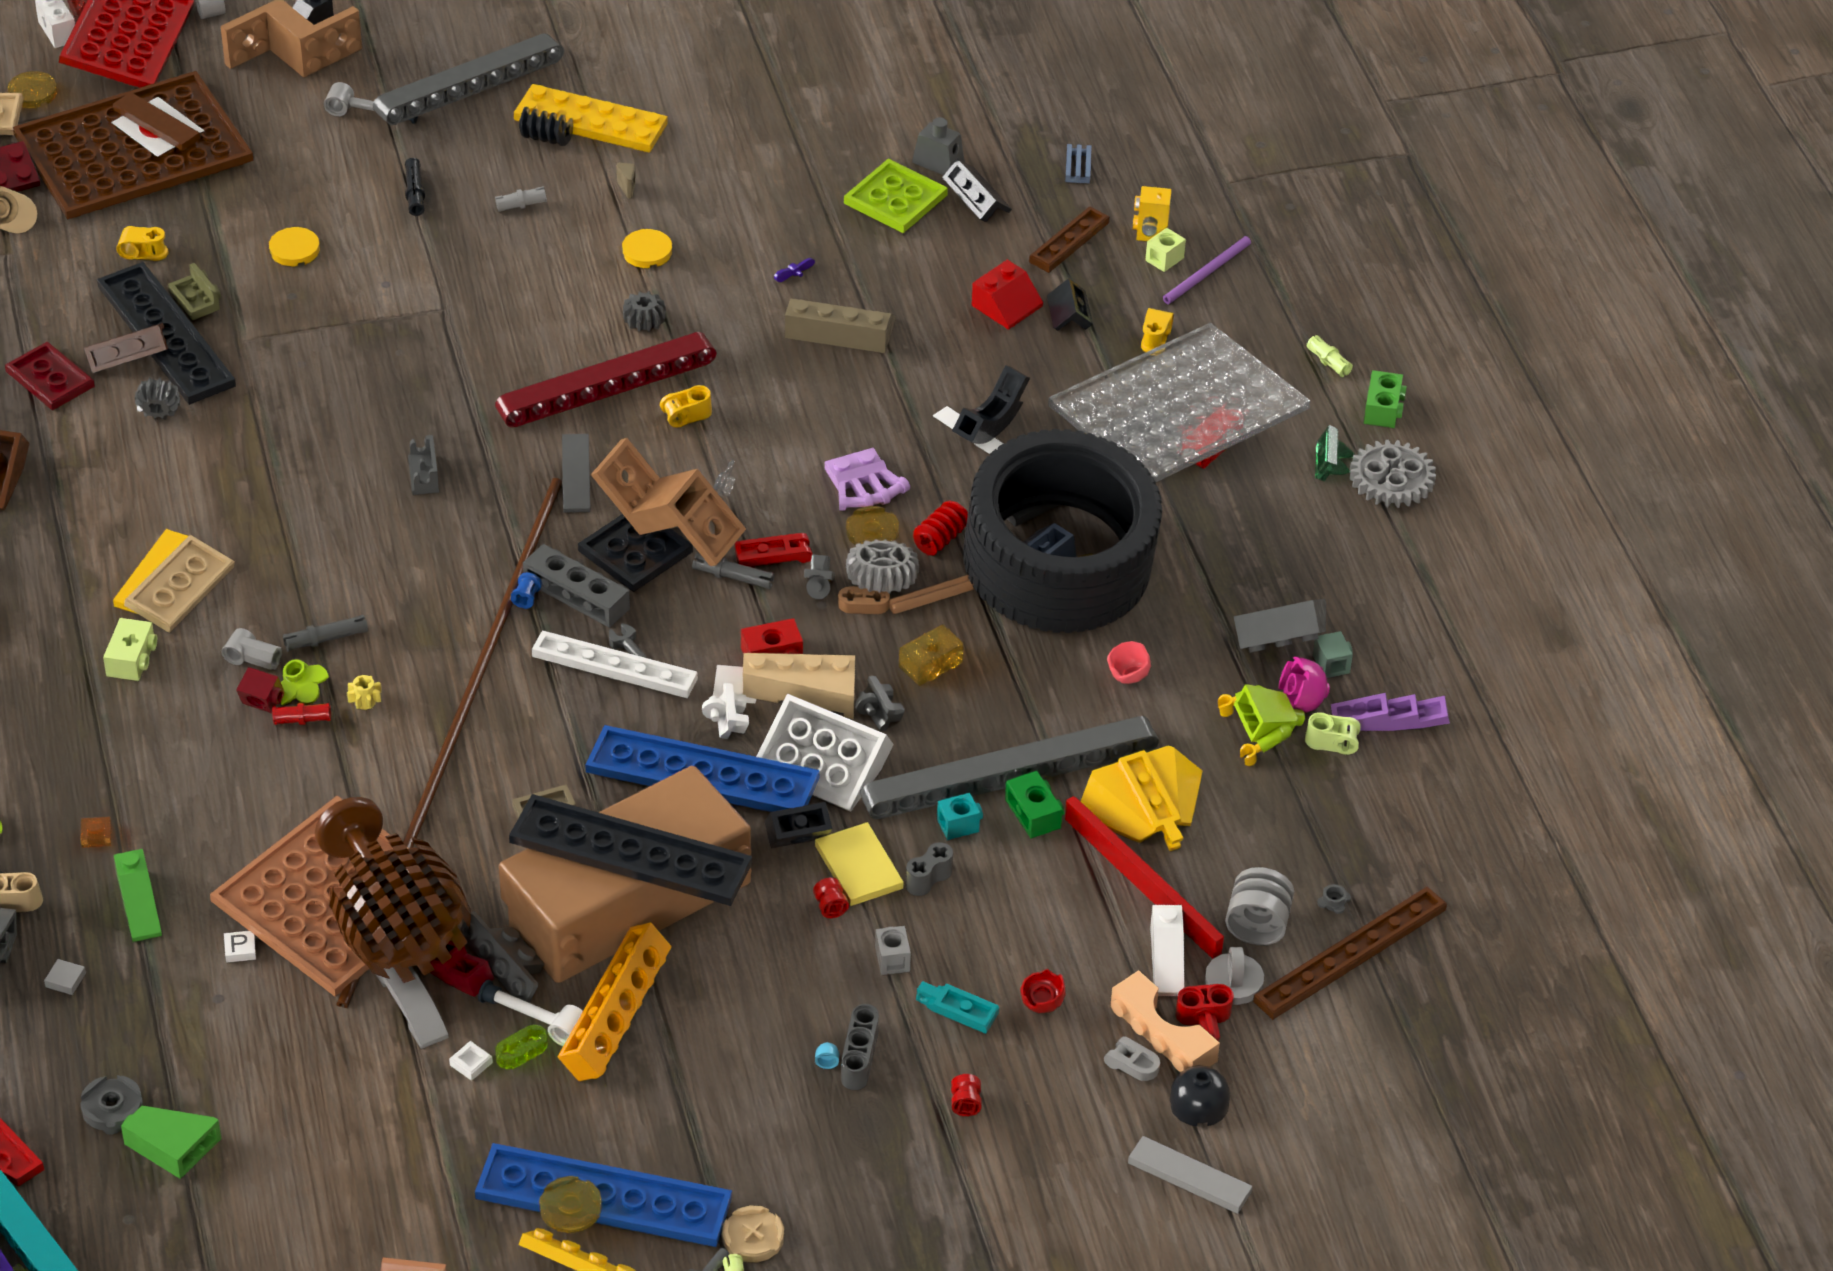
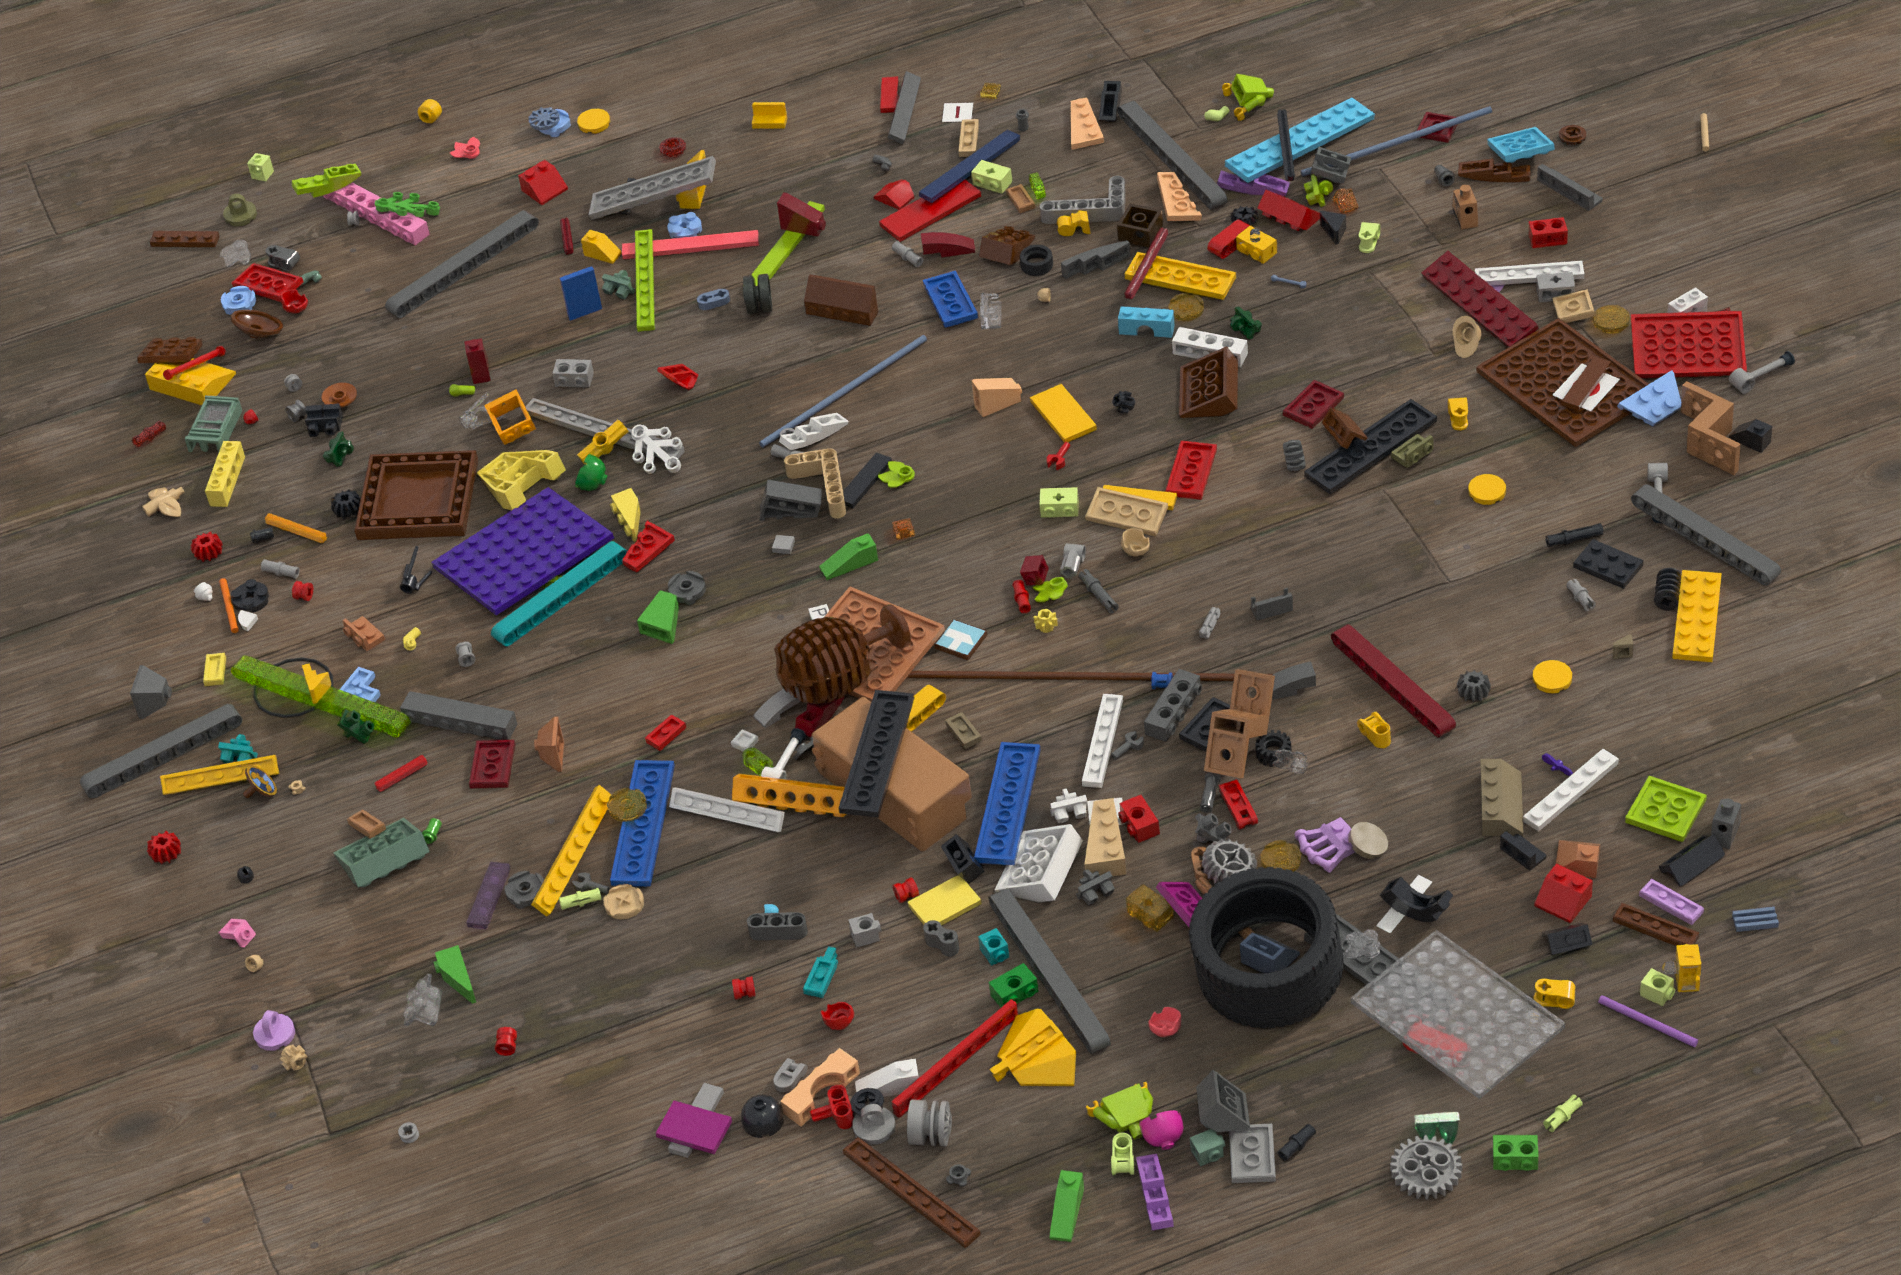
camera: 90 degrees right, 0 degrees up
(27, 645) = (1058, 458): none -> red bar
(120, 511) = (1191, 469): none -> red tile
(211, 75) = (1655, 400): none -> light blue wing
(252, 581) = (1134, 542): none -> tan hair
(359, 781) = (960, 639): none -> tile
(423, 1152) = (665, 732): none -> red plate
(430, 533) = (1209, 623): none -> light grey axle
(473, 170) = (1608, 563): none -> black plate
(480, 844) = (925, 704): none -> yellow beam
(612, 1088) = (727, 809): none -> white plate
(838, 266) = (1570, 790): none -> white plate
(875, 440) = (1368, 840): none -> tile
(925, 320) = (1521, 850): none -> black panel
(940, 613) = (1181, 897): none -> magenta tile
(950, 275) = (1579, 857): none -> nougat slope
(1034, 220) = (1671, 902): none -> lavender tile
(1195, 966) = (860, 1098): none -> black gear
(1212, 1170) = (694, 1127): none -> magenta tile
(1336, 577) = (1296, 1142): none -> black pin
(1357, 620) = (1252, 1154): none -> light grey tile
(1402, 795) = (1066, 1205): none -> bright green slope

